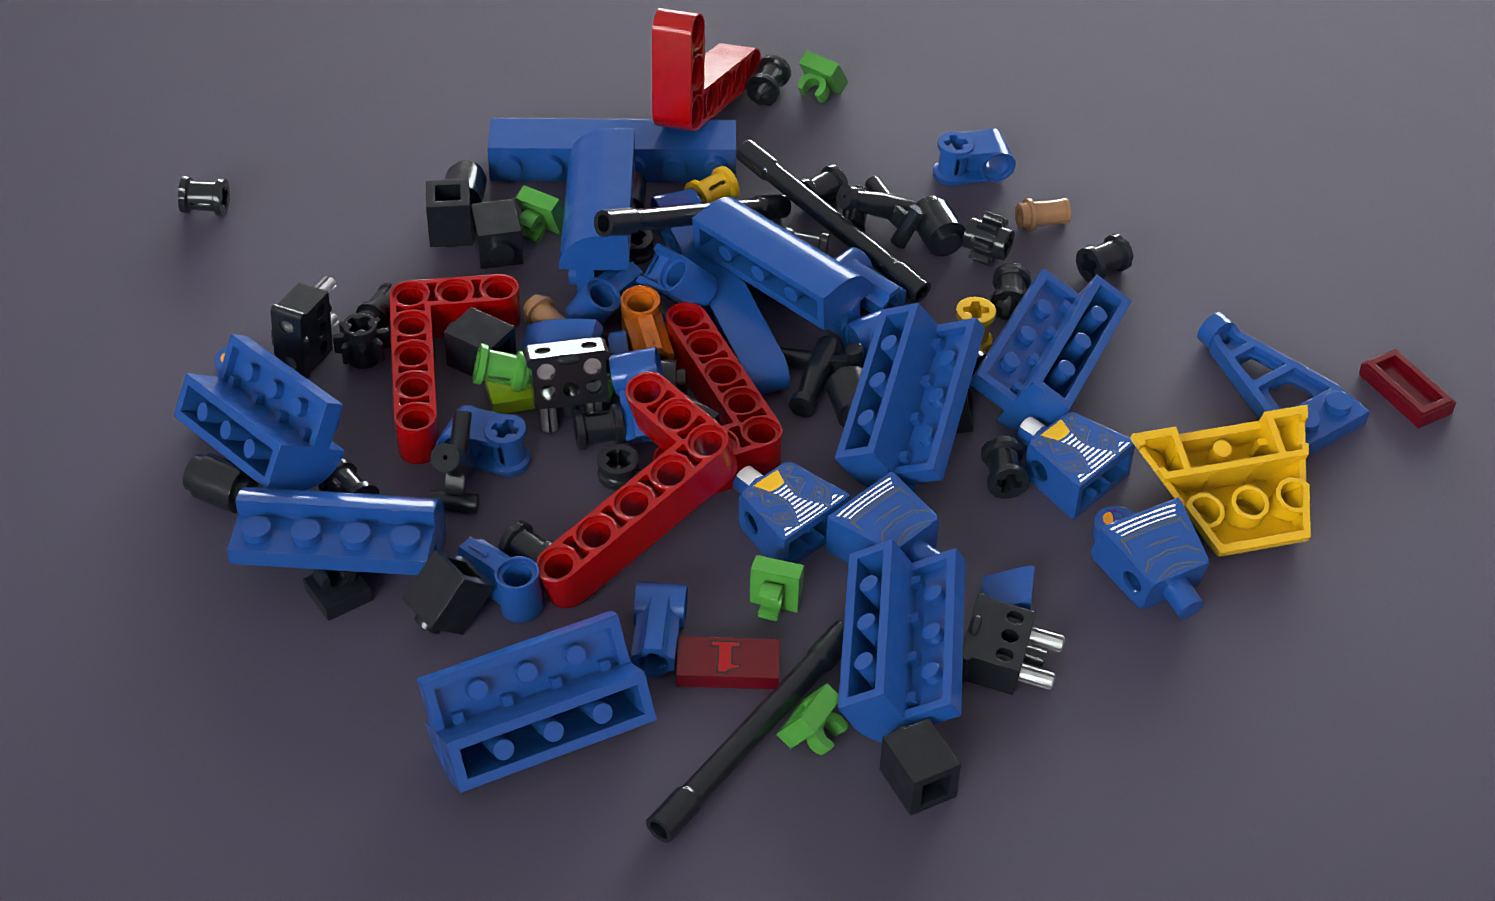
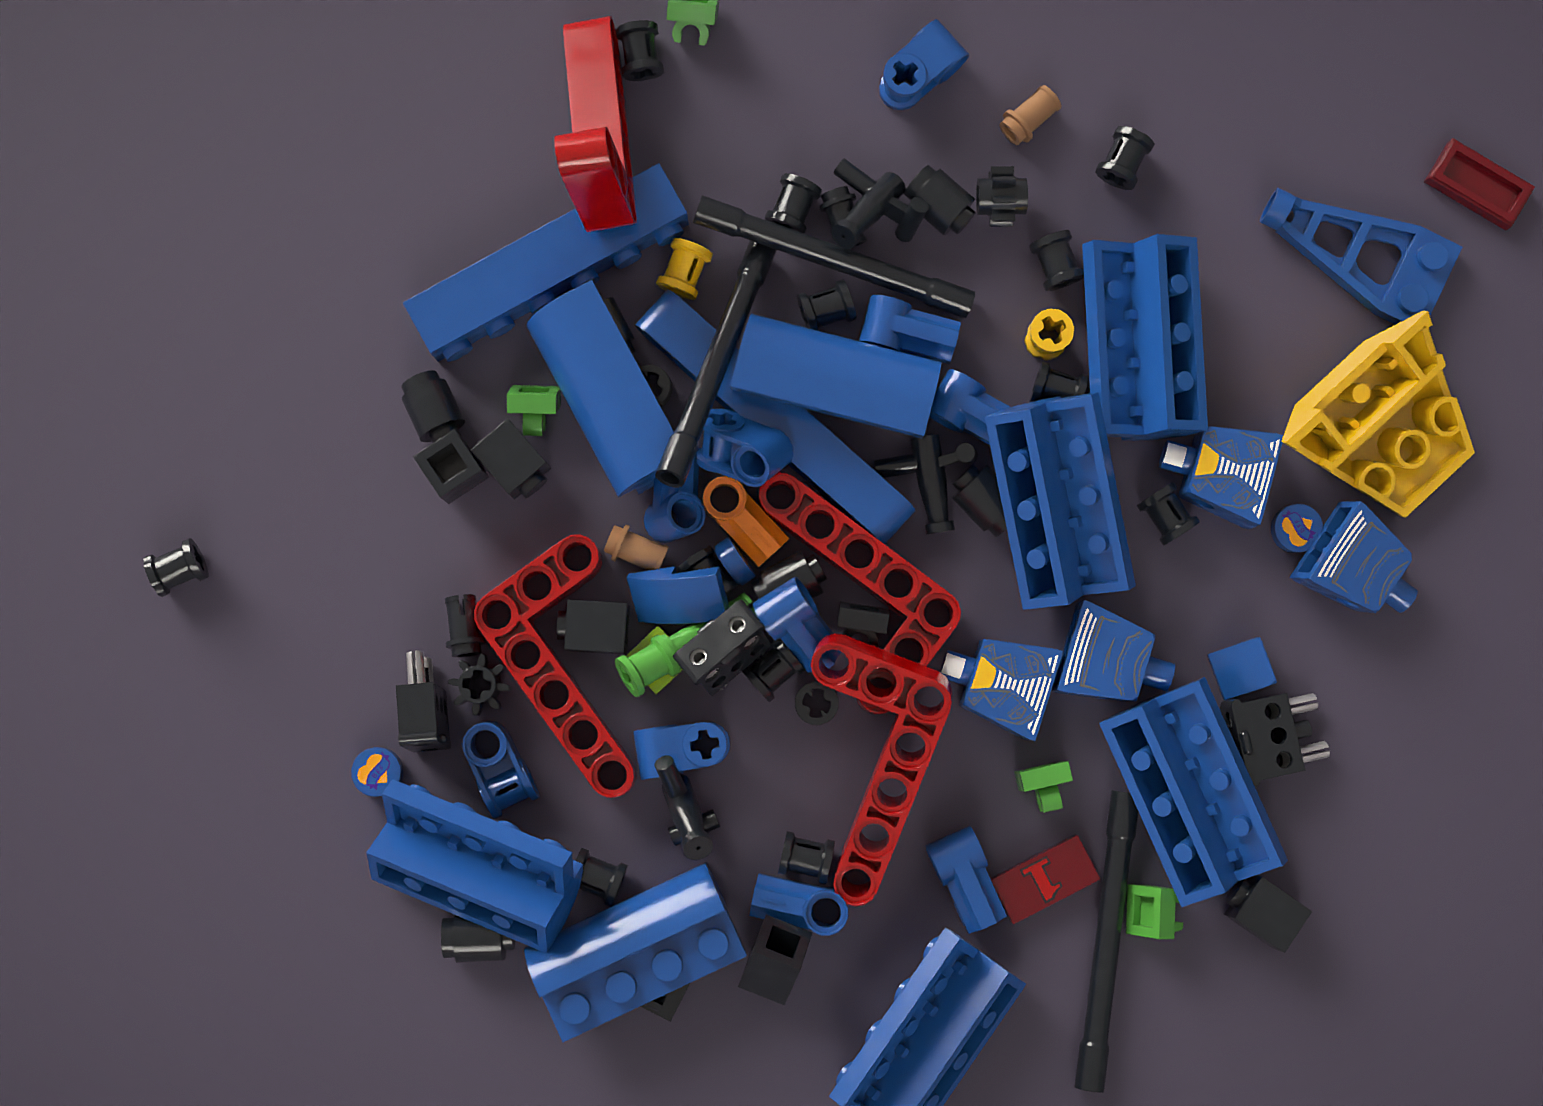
camera: 30 degrees left, 40 degrees up
(336, 374) = (499, 771): none -> blue piece

